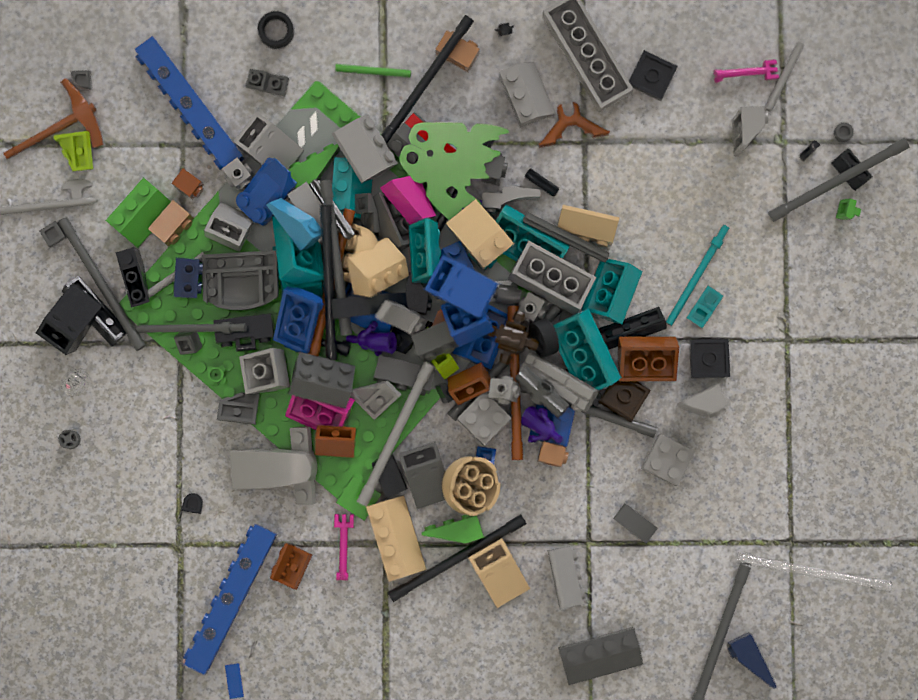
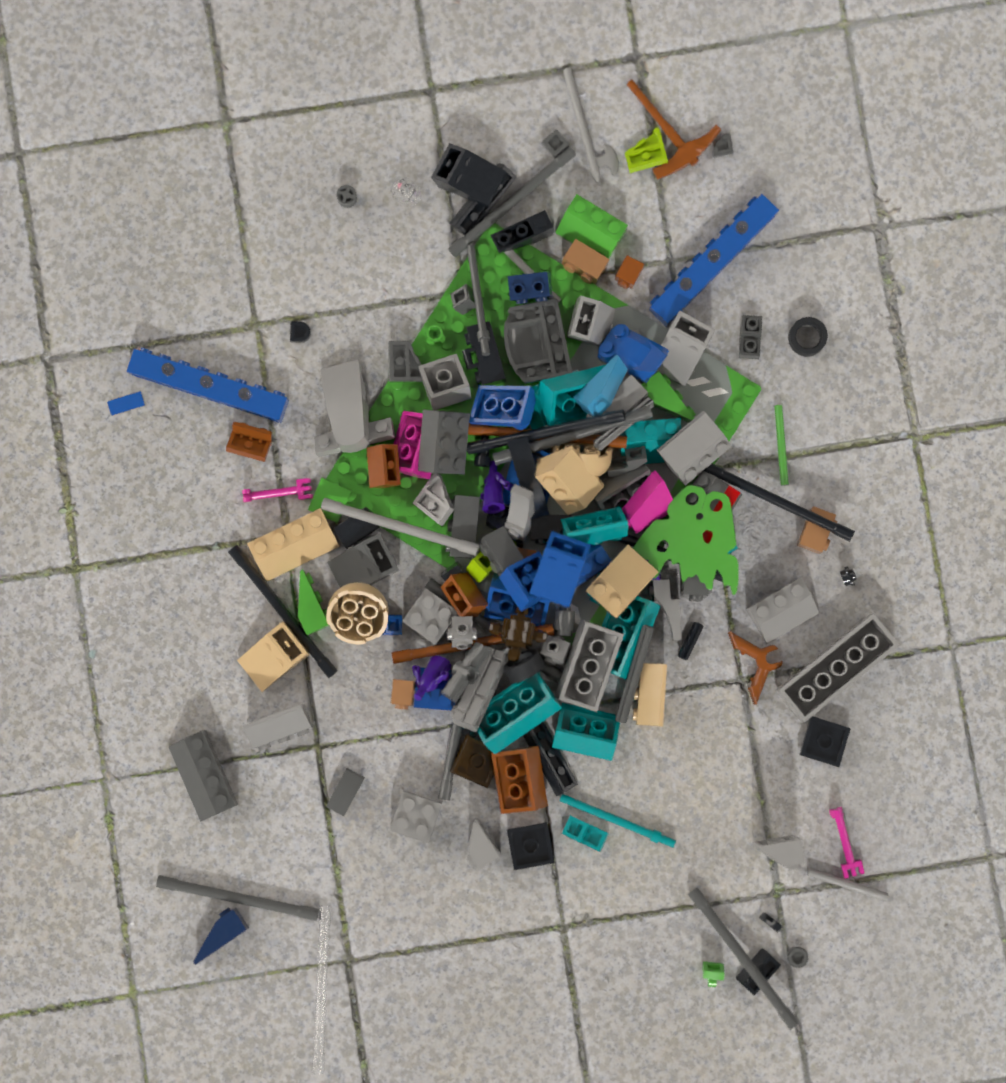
camera: 85 degrees right, 0 degrees up
(235, 168) = (648, 315): light grey brick -> none

